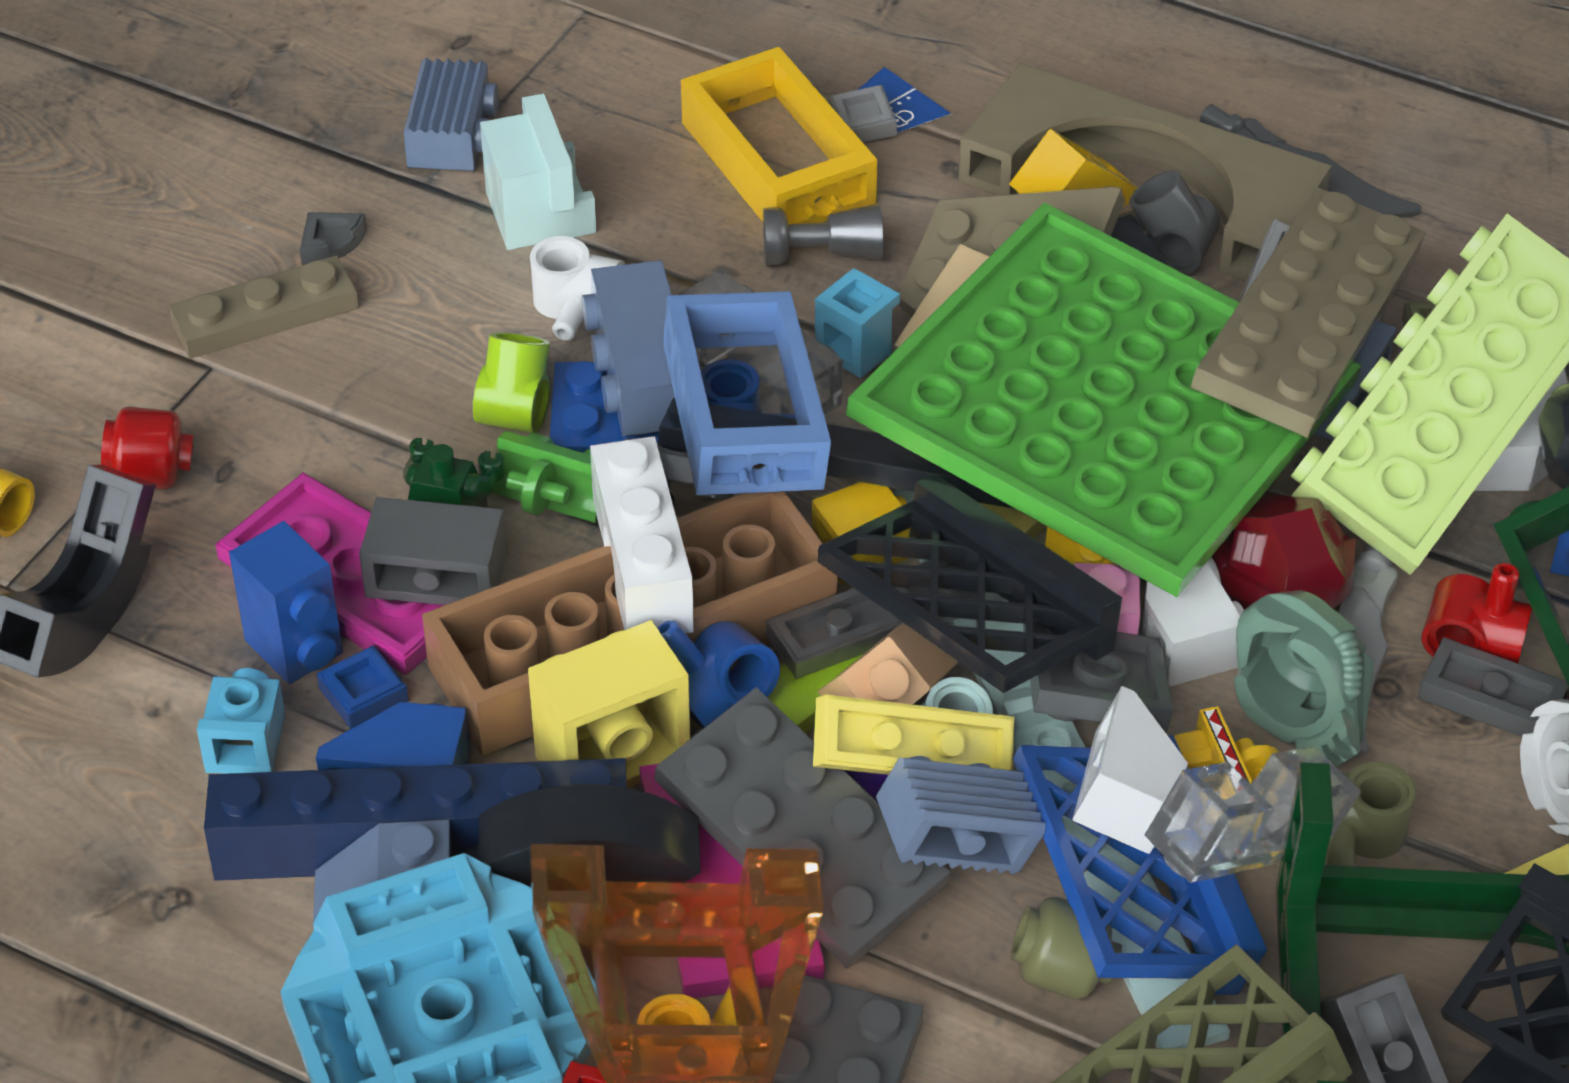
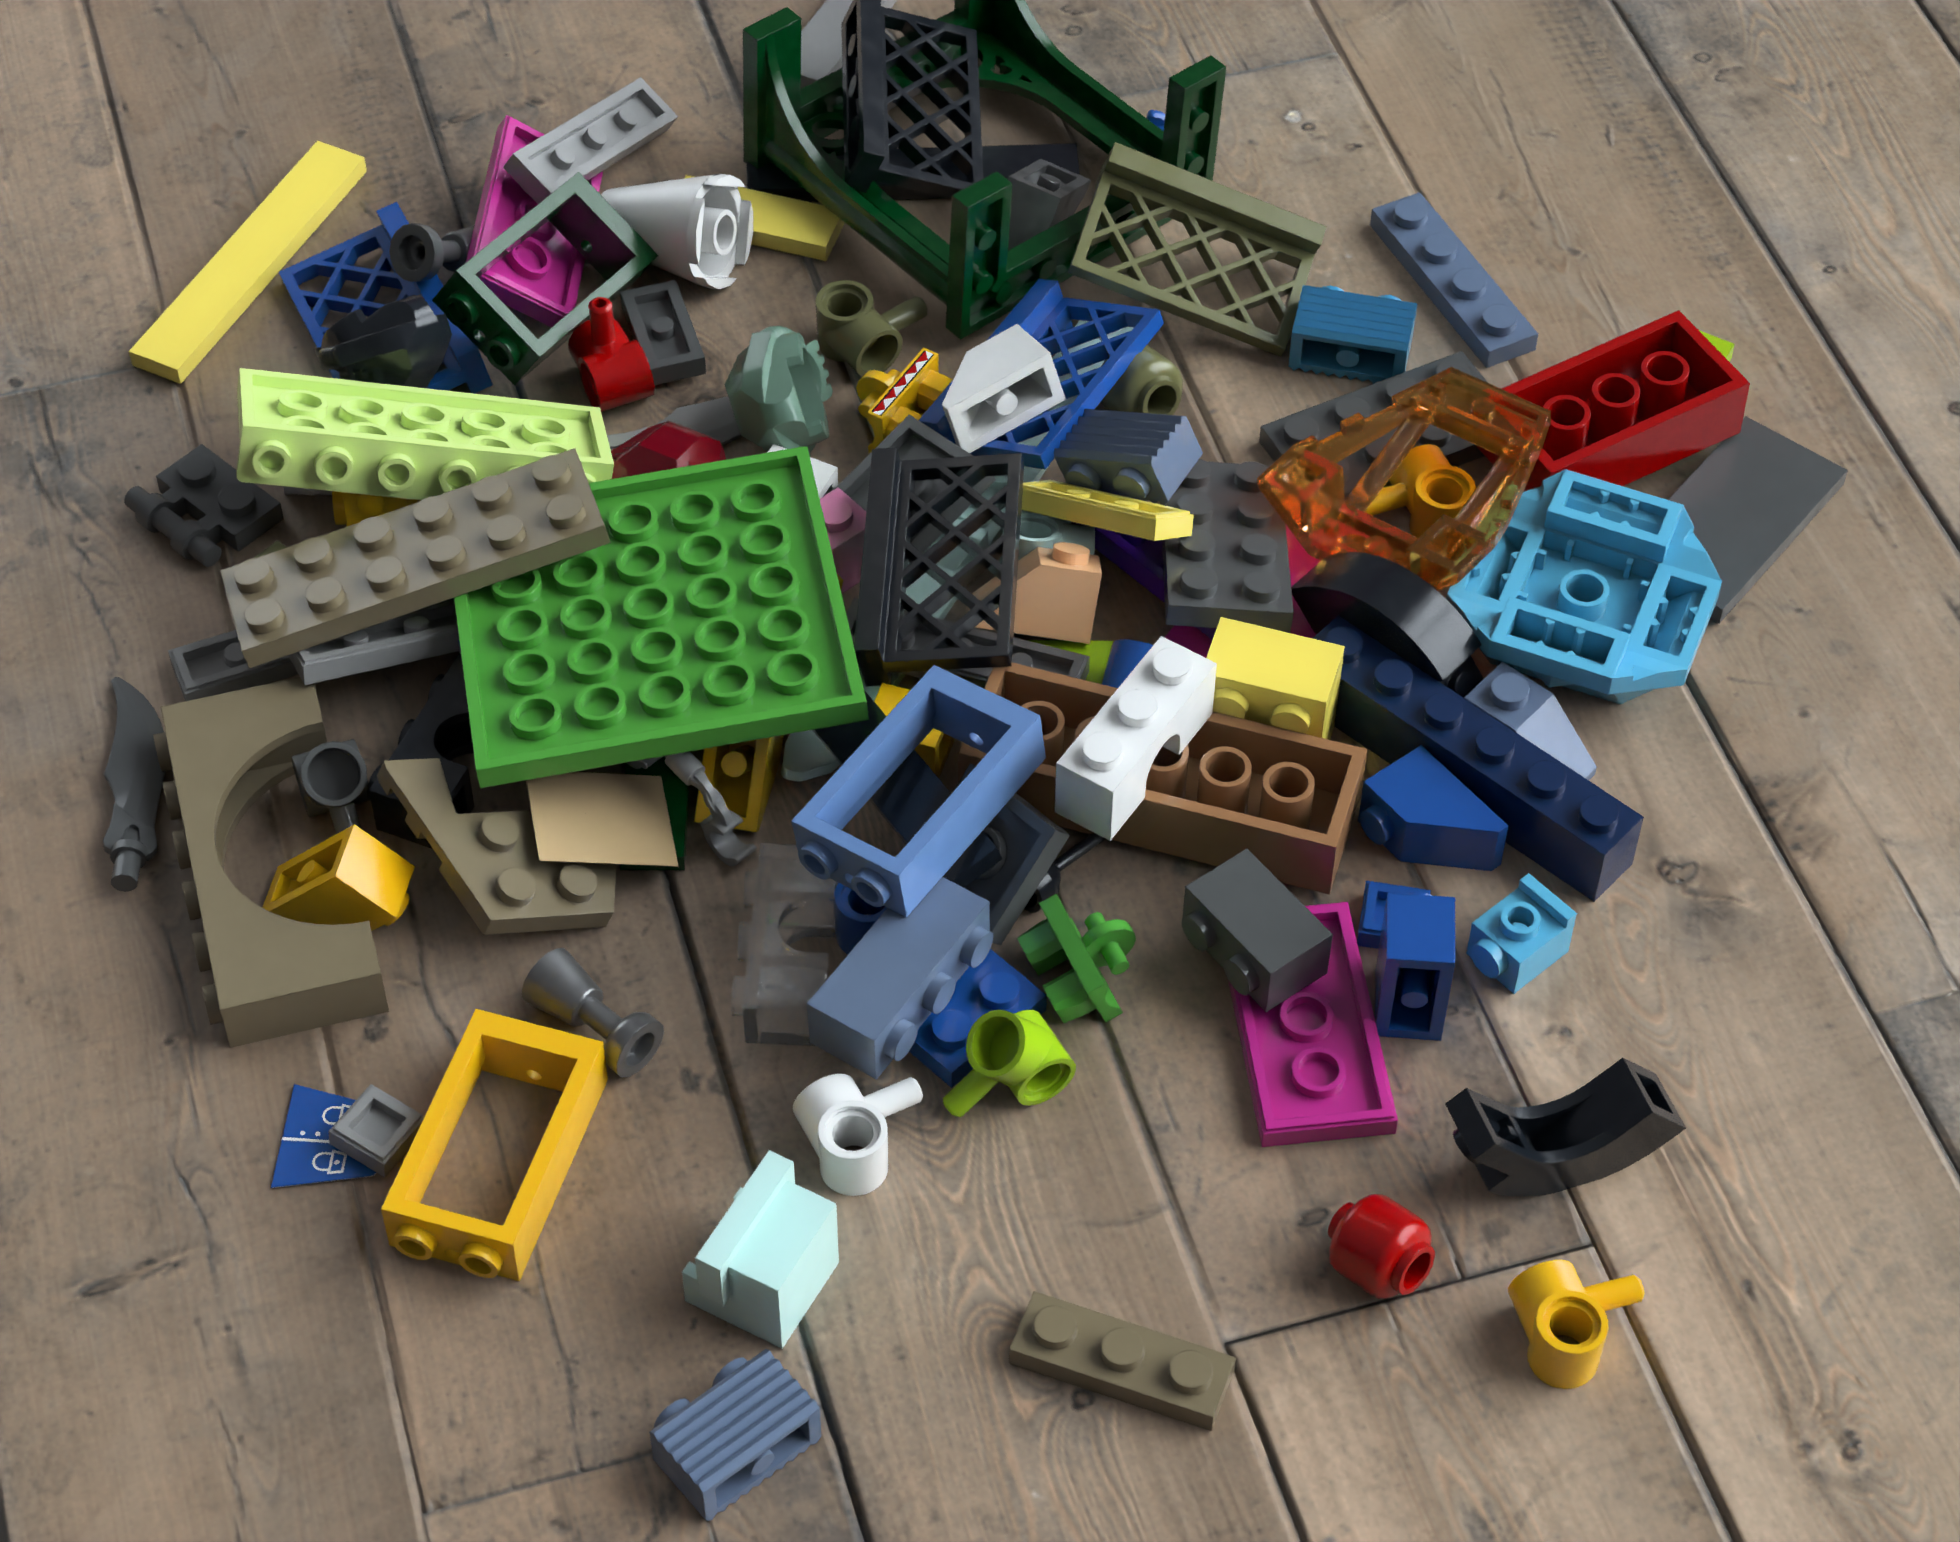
camera: 135 degrees left, 5 degrees up
(331, 235) = (982, 1400): dark grey tile -> none
(443, 479) = (1180, 998): dark green piece -> none
(856, 321) = (697, 878): medium azure brick -> none
(1225, 825) = (1011, 288): clear arch -> none

